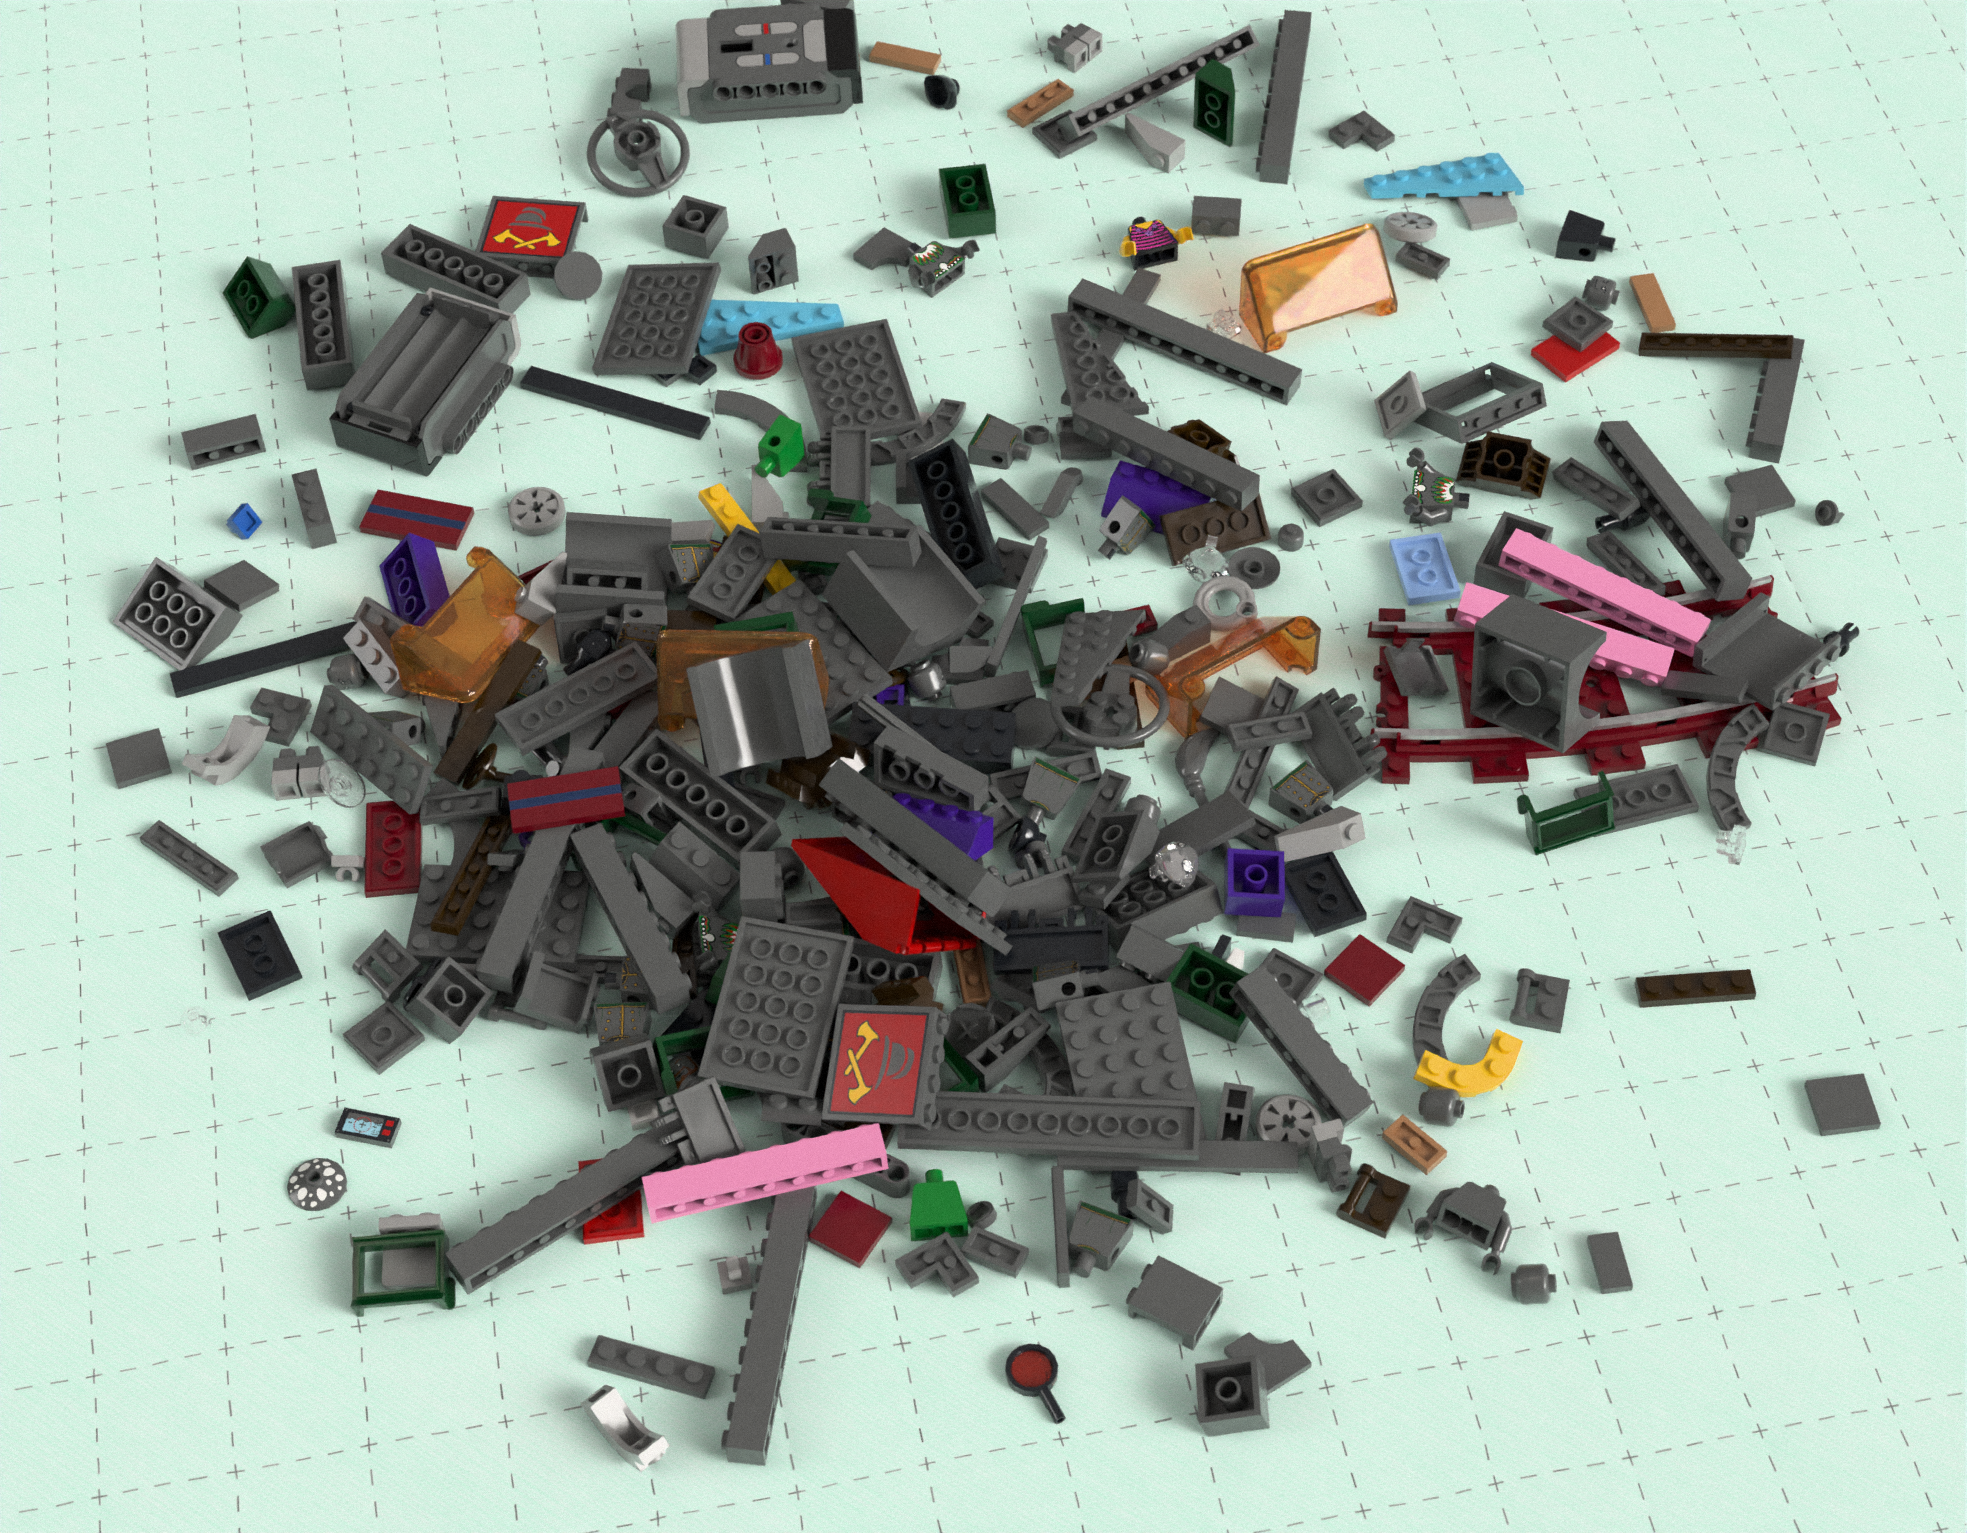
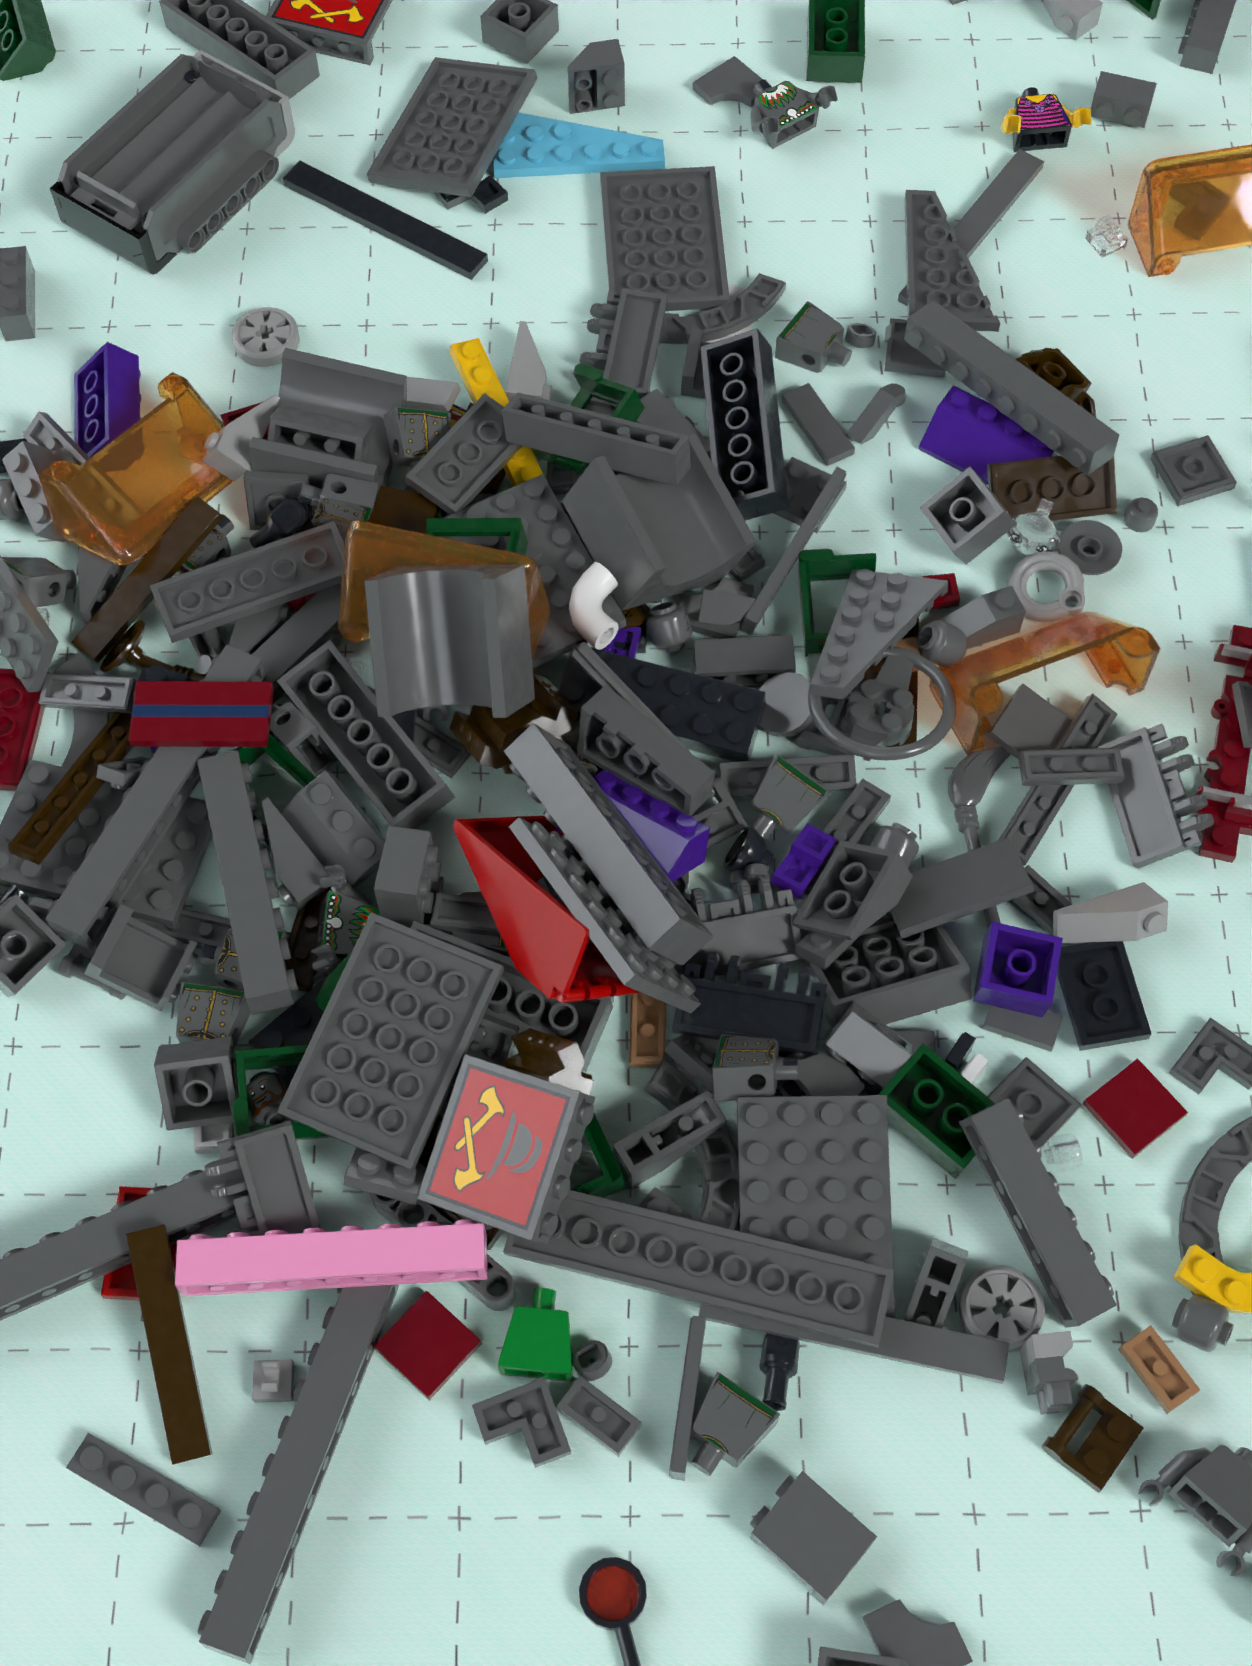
camera: 10 degrees right, 10 degrees up
(323, 324) = (78, 74): dark grey brick -> none
(398, 514) = (130, 324): dark red tile -> none
(577, 275) = (374, 61): dark grey tile -> none
(623, 1430) = (87, 1579): light grey arch -> none
(649, 1258) = (169, 1344): none -> dark brown tile
(755, 409) = (557, 269): dark grey tile -> none
(757, 352) = (557, 185): dark red piece -> none
(780, 448) = (556, 306): green torso -> none
(792, 866) = (444, 837): dark grey head -> none
(859, 670) = (586, 606): none -> white cylinder
(970, 1027) = (626, 1102): dark grey tile -> none
(1072, 834) = (803, 861): none -> dark purple slope
(1124, 528) = (938, 468): dark grey torso -> none
(1150, 1206) = (804, 1397): dark grey plate -> none
(1151, 558) = (967, 516): none -> dark grey brick
(1176, 862) = (926, 929): clear piece -> none
(1185, 341) = (1059, 249): dark grey brick -> none
(1302, 794) = (1098, 857): dark grey torso -> none

